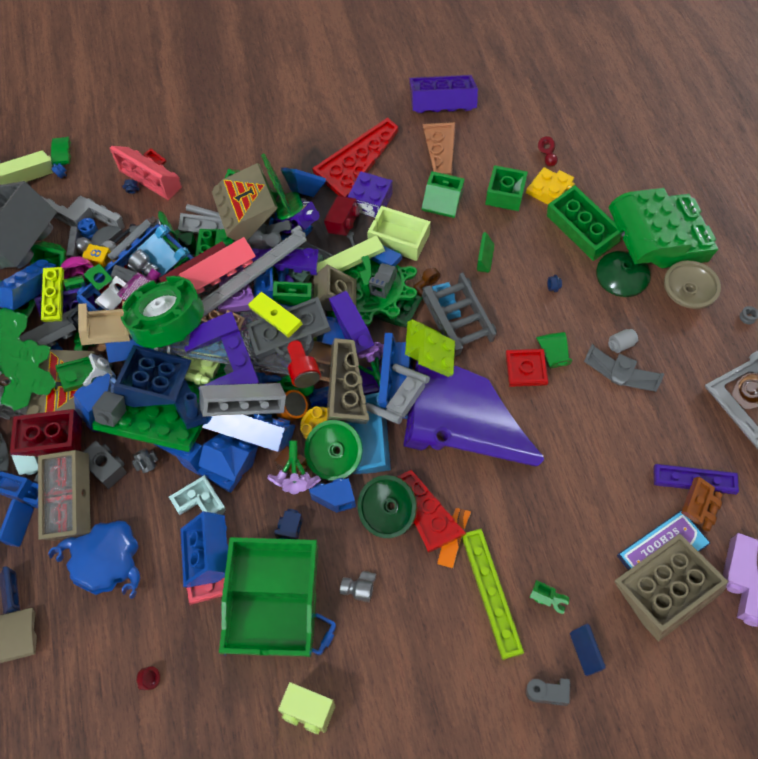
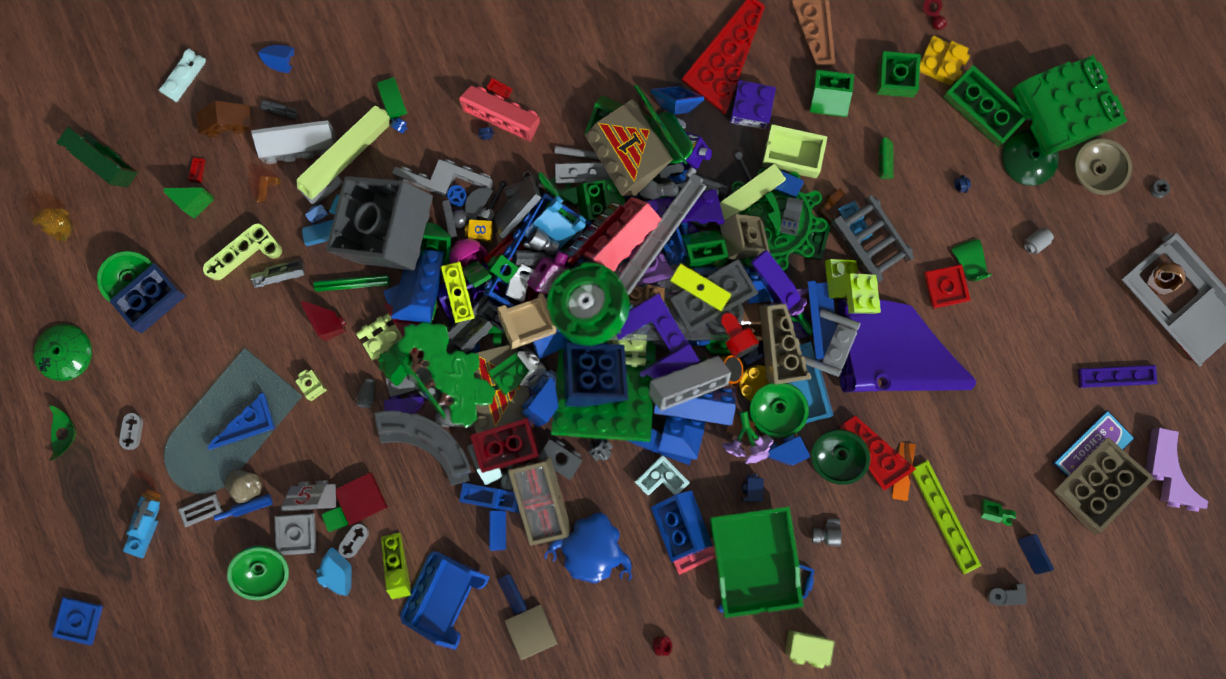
camera: 15 degrees left, 20 degrees up
(109, 409) = (567, 417): dark grey brick -> none
(188, 407) = (640, 399): dark blue piece -> none
(342, 215) = (728, 137): dark red brick -> none
(622, 370) = (1040, 273): dark grey plate -> none
(697, 503) = (1125, 402): dark orange plate -> none

